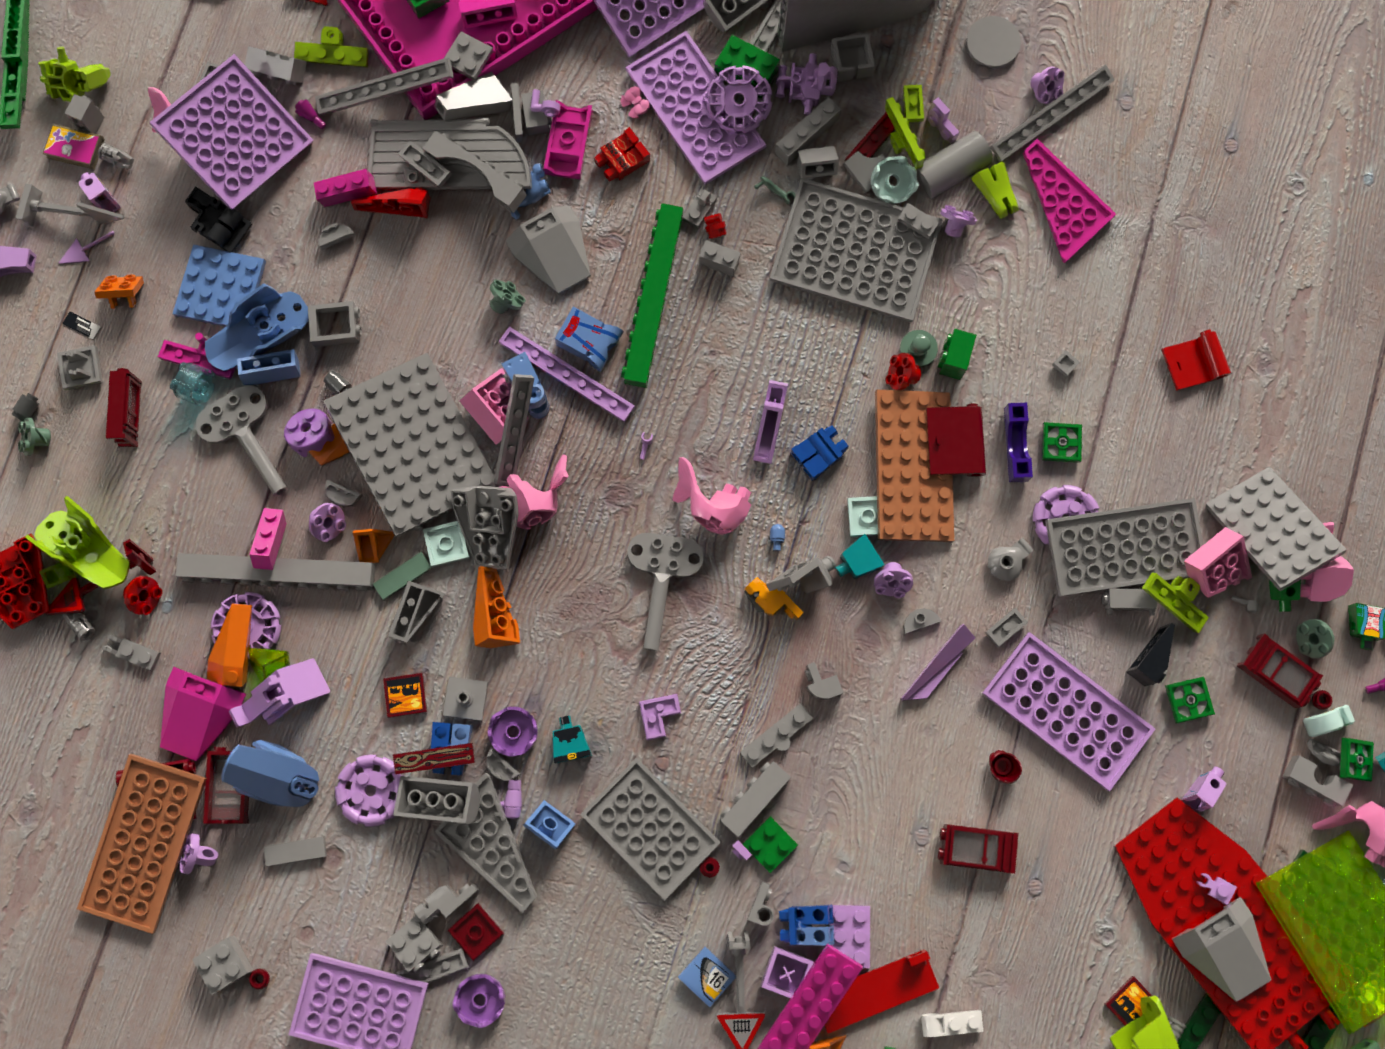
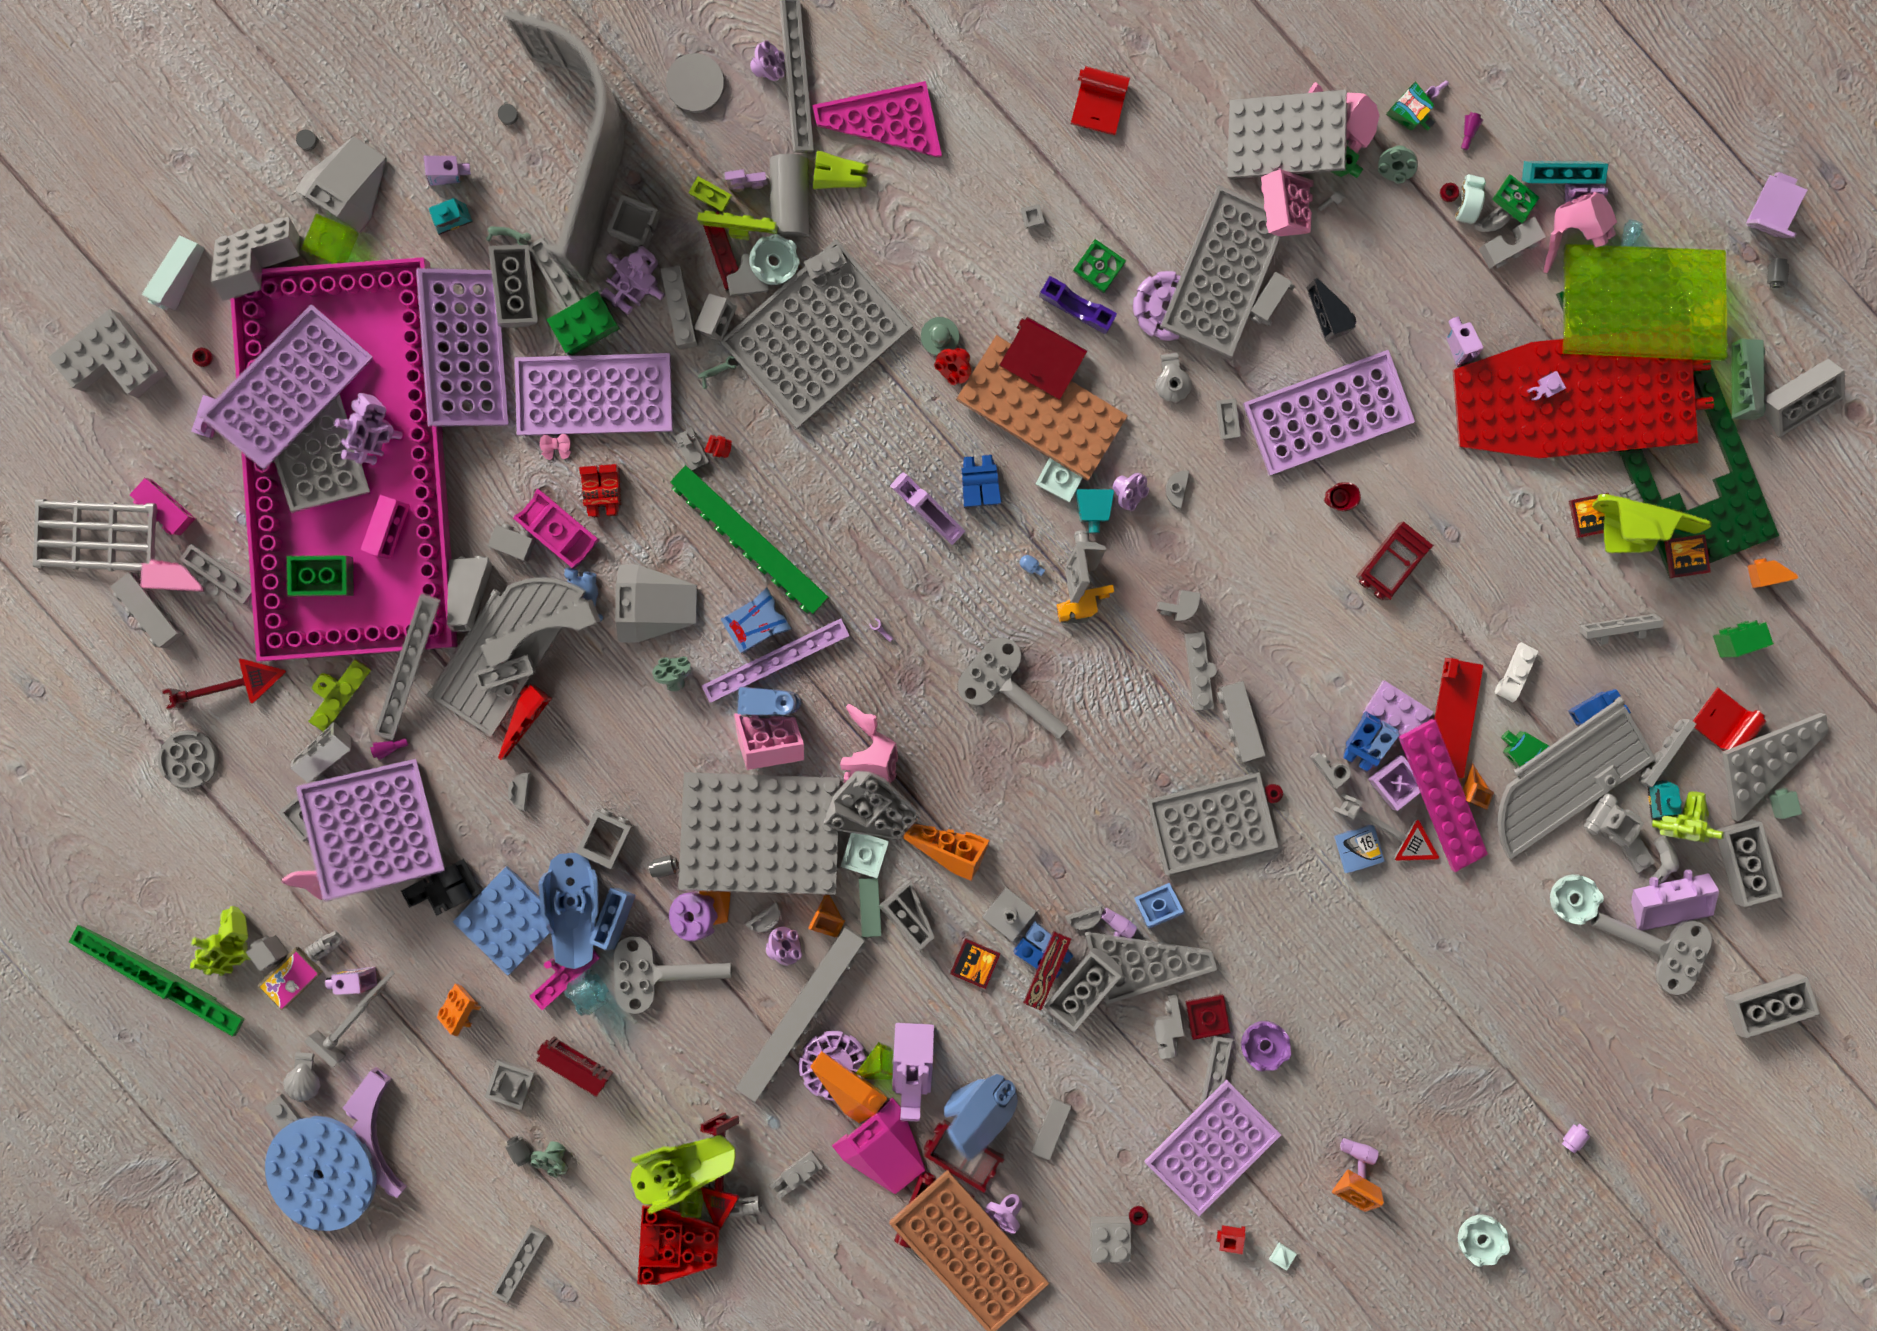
camera: 55 degrees left, 10 degrees up
(76, 251) = (396, 1030): lavender piece -> none
(81, 325) = (468, 1061): sticker -> none
(142, 595) = (753, 1139): red plate -> none
(268, 539) = (770, 1005): dark pink brick -> none
(345, 188) = (482, 756): dark pink brick -> none
(358, 790) = (1032, 1048): lavender plate -> none
(414, 944) = (1188, 1073): light grey plate -> none
(468, 55) = (423, 573): light grey plate -> none
(499, 727) = (1072, 900): medium lavender plate -> none
(514, 427) = (803, 737): light grey plate -> none
(517, 112) = (501, 559): light grey tile -> none
(548, 107) = (519, 529): lavender plate -> none
(569, 742) = (1100, 848): torso -> none
(653, 711) = (1116, 761): lavender tile -> none
(719, 258) = (751, 461): light grey brick -> none
(720, 513) = (982, 600): bright pink hips -> none
(740, 851) = (1276, 759): lavender plate -> none
(750, 101) = (618, 340): lavender plate -> none
(770, 844) = (1285, 731): green plate -> none
(939, 665) = (1224, 497): lavender wedge -> none
(956, 354) = (968, 307): green brick -> none
(957, 220) = (845, 226): lavender plate -> none
(1177, 599) = (1295, 259): lime plate -> none
(1189, 700) = (1382, 304): green piece -> none
(1227, 950) = (1601, 412): light grey wedge -> none
(1281, 672) = (1406, 211): dark red door -> none

